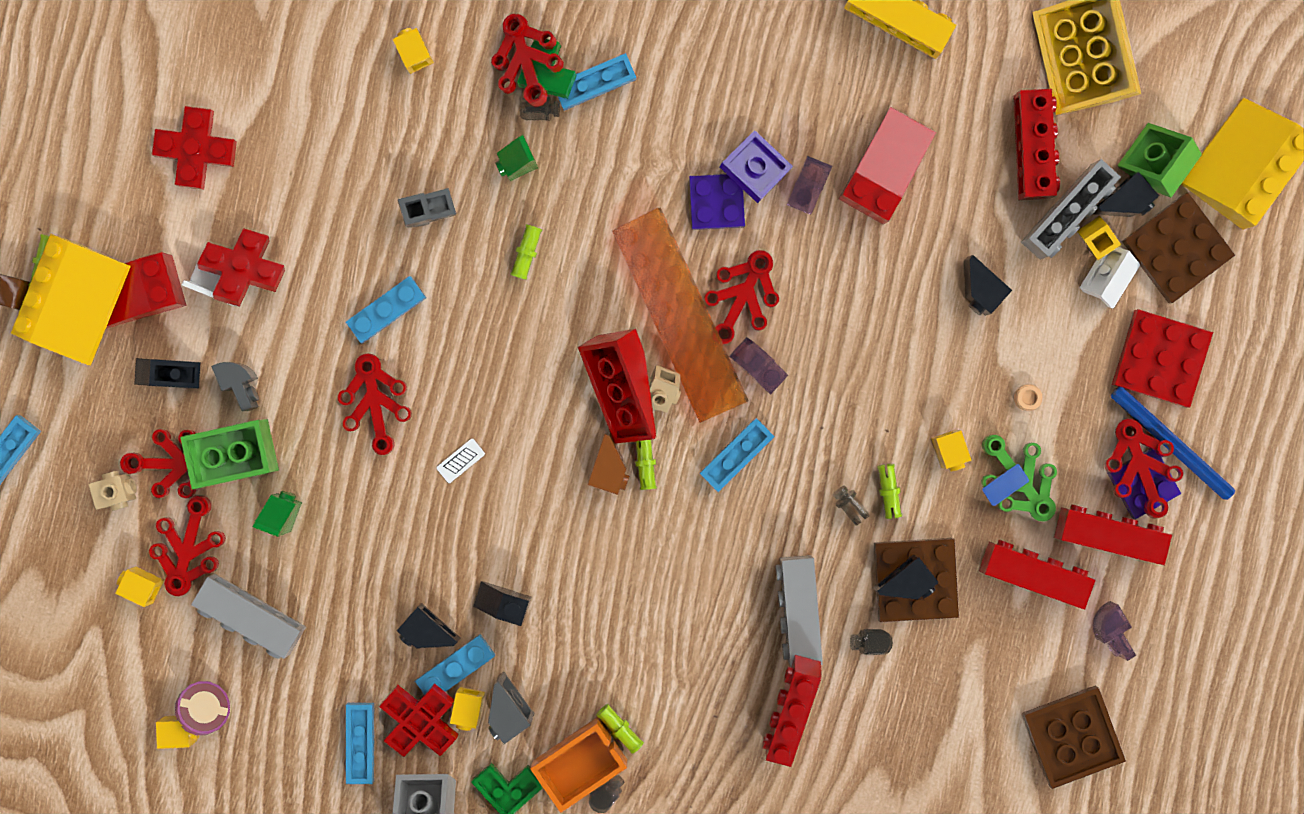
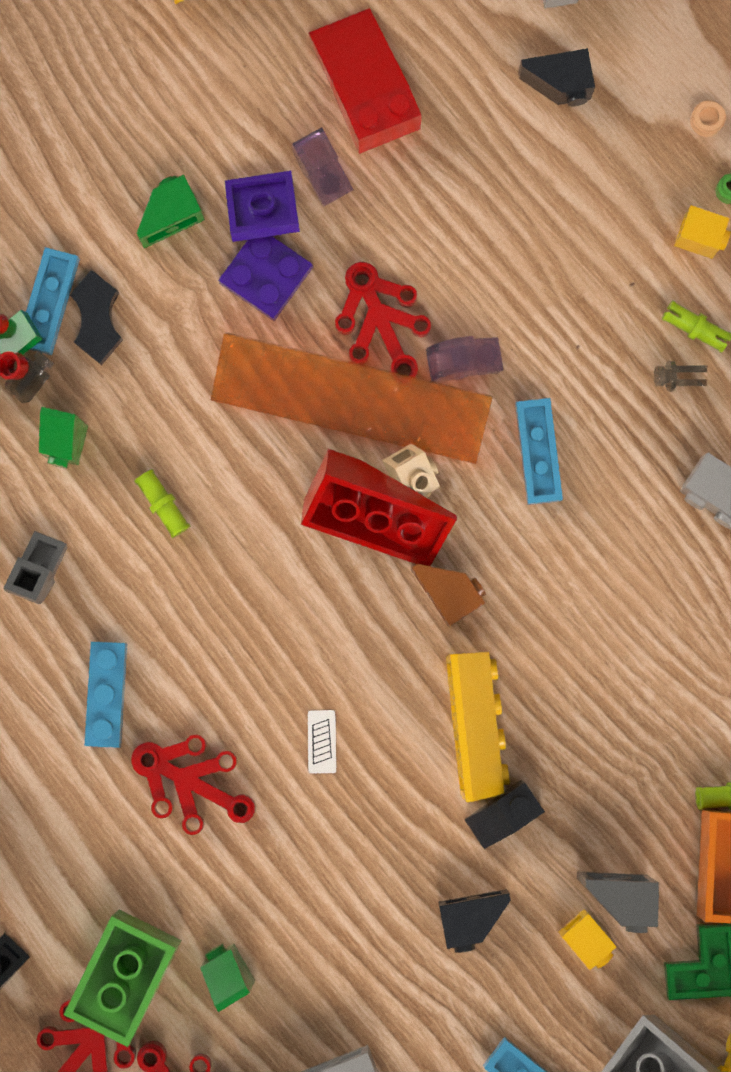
camera: 45 degrees left, 5 degrees down
(237, 378) = (50, 906): dark grey brick -> none
(419, 720) = (561, 1002): red plate -> none
(457, 665) = (534, 920): dark azure plate -> none
(539, 546) = (475, 725): none -> yellow slope
(599, 127) = (97, 332): none -> black tile
(645, 465) = (476, 552): lime pin -> none
(709, 111) = (169, 211): none -> green slope

